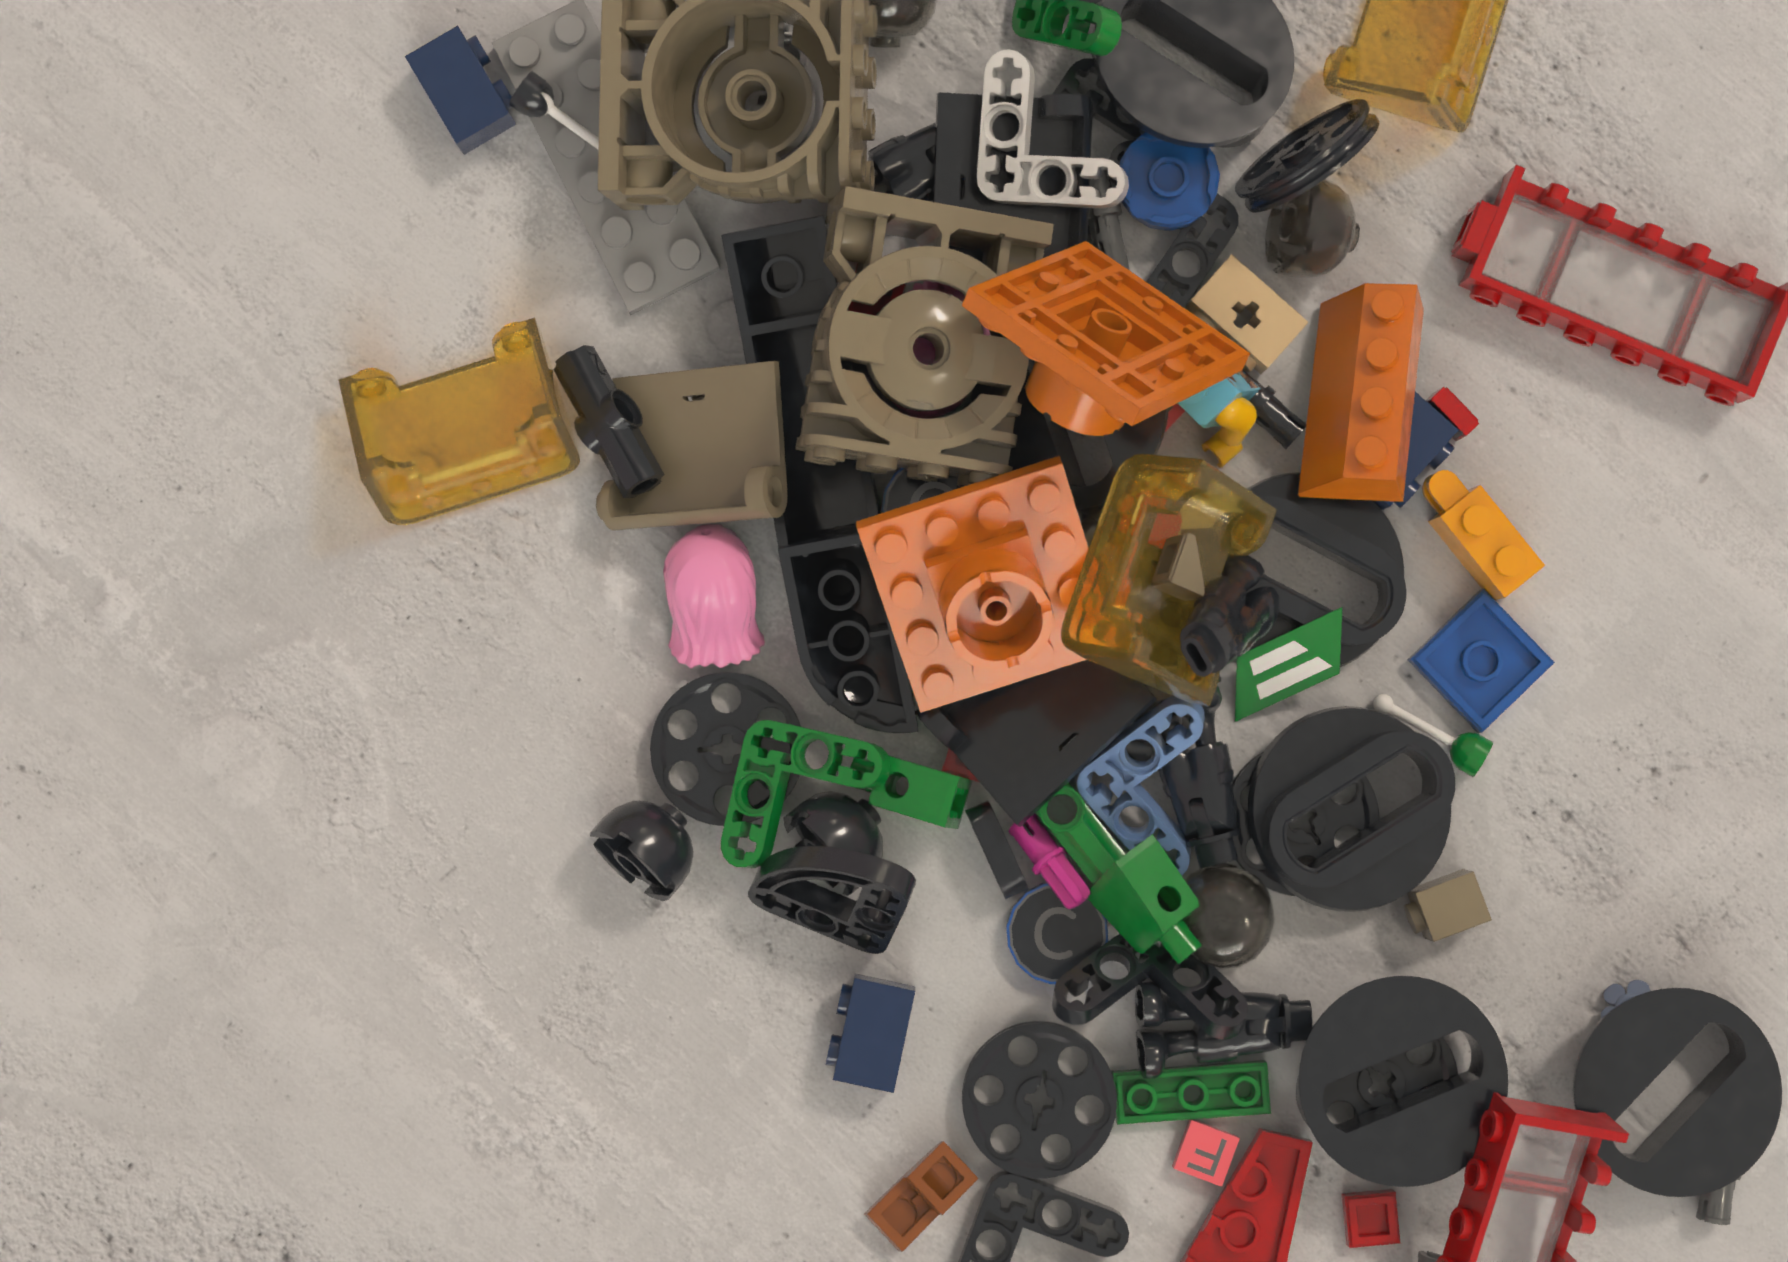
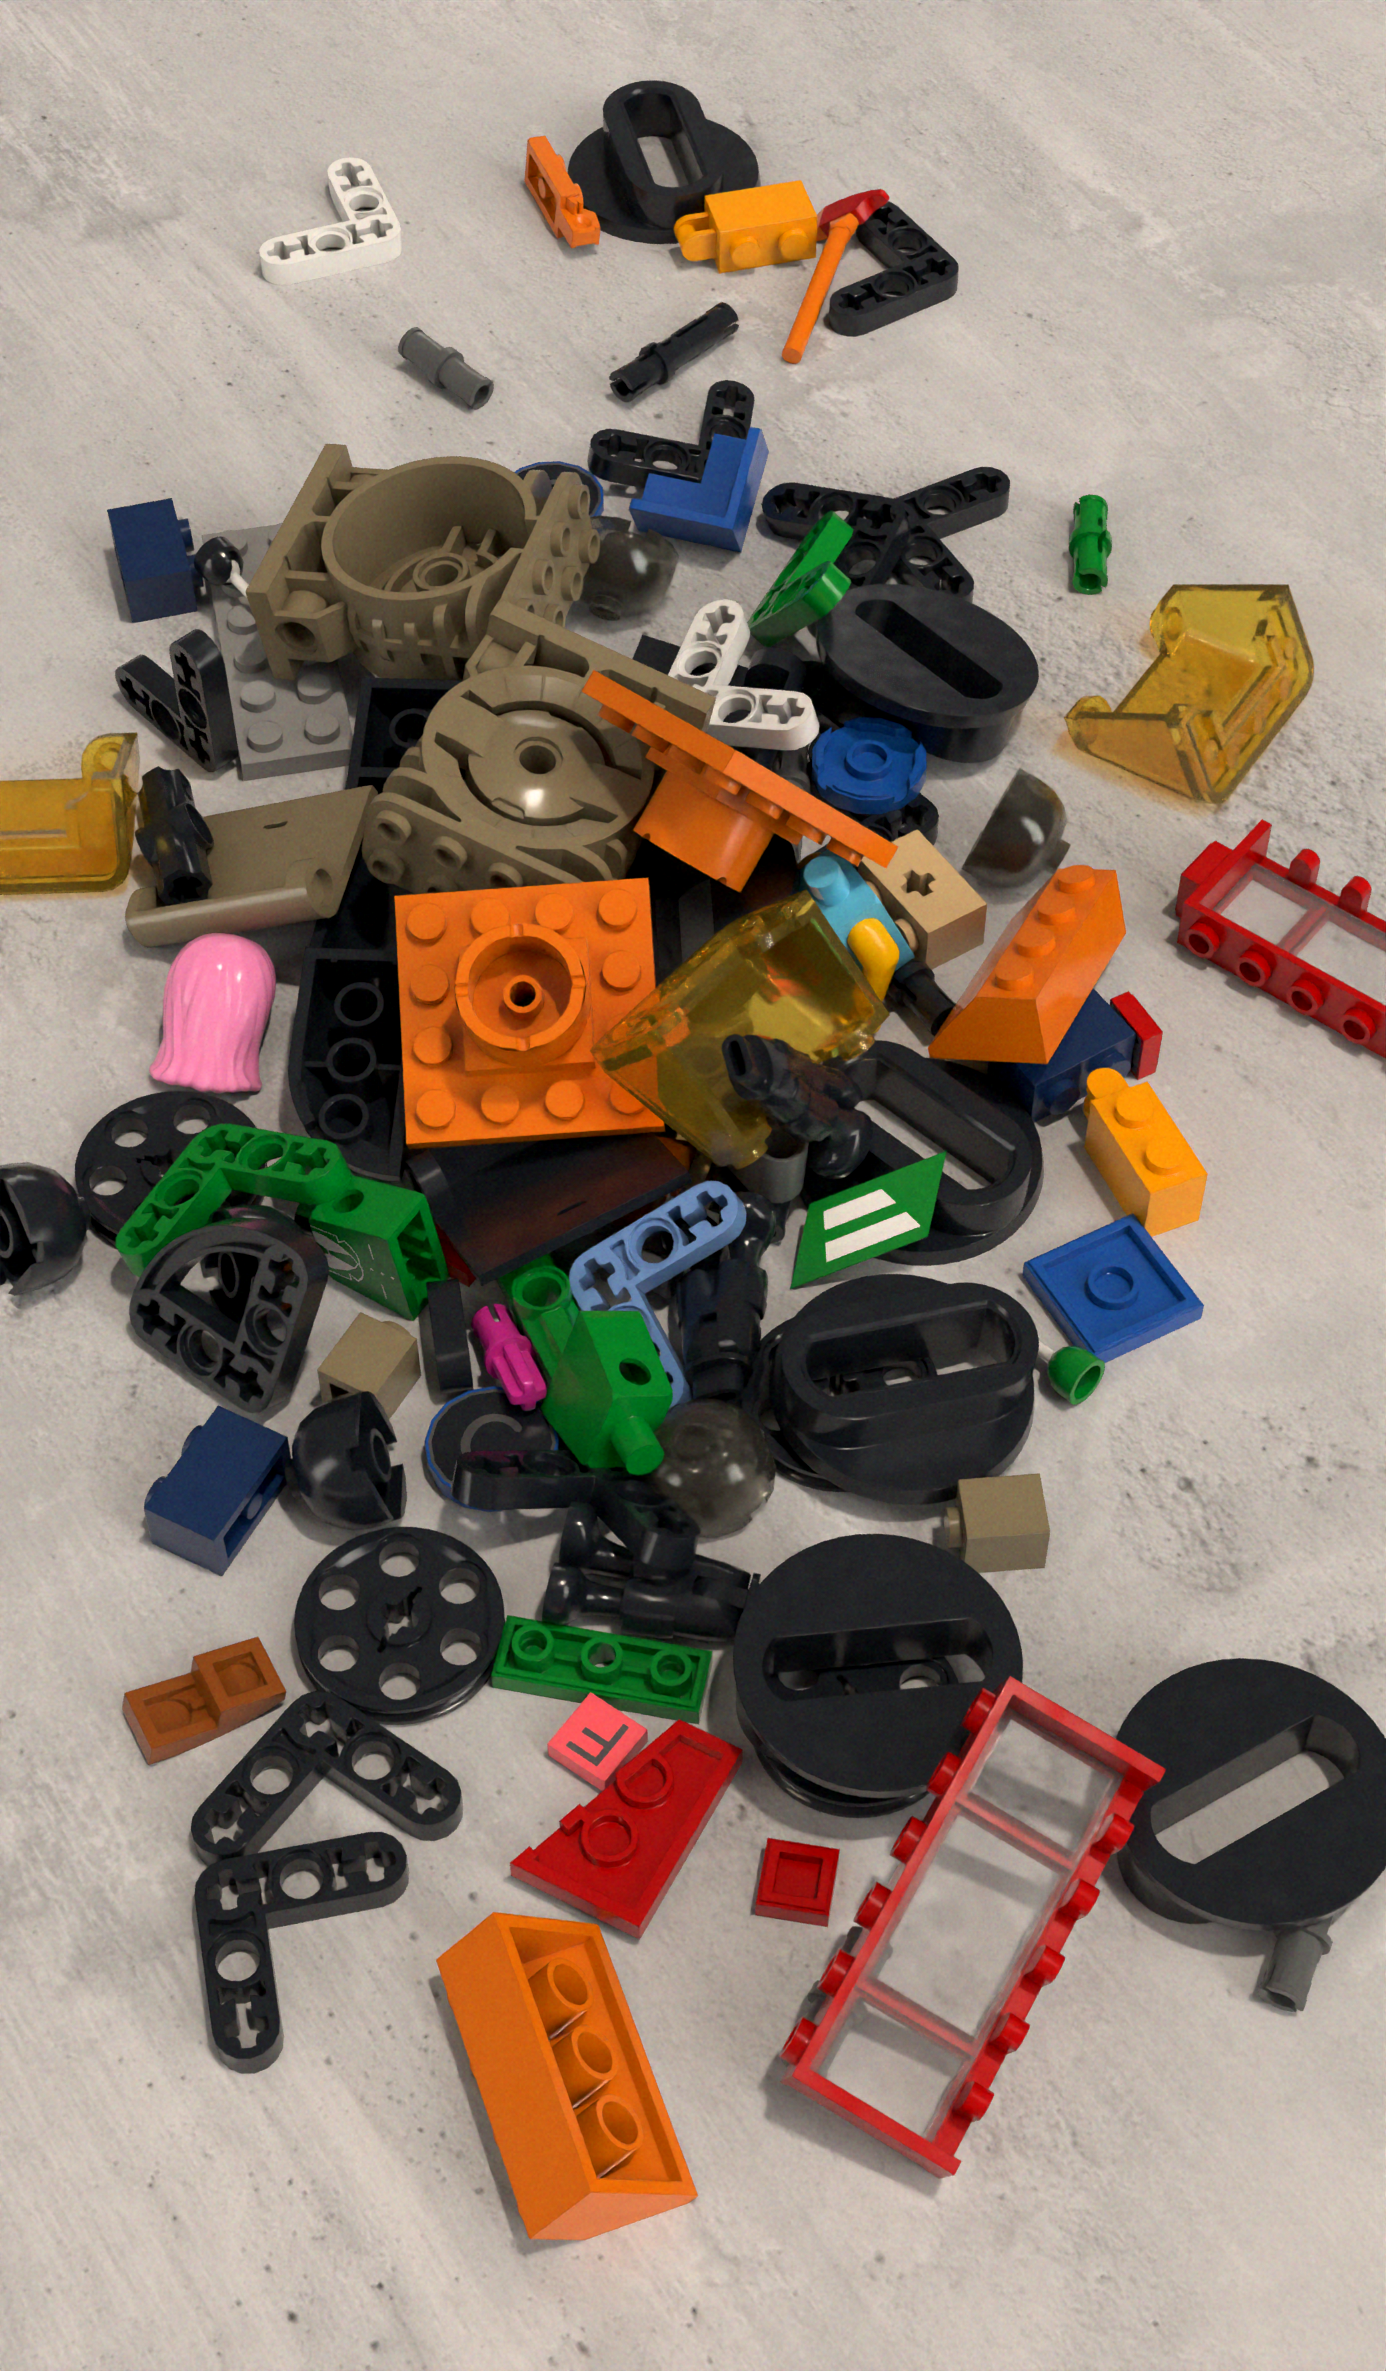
camera: 20 degrees right, 35 degrees down
(570, 277) = (193, 705): none -> black beam
(949, 898) = (372, 1359): none -> dark tan brick
(964, 994) = (345, 1466): none -> black cylinder
(1179, 568) = (757, 1014): dark tan slope -> none
(1307, 155) = (1042, 736): black wedge -> none

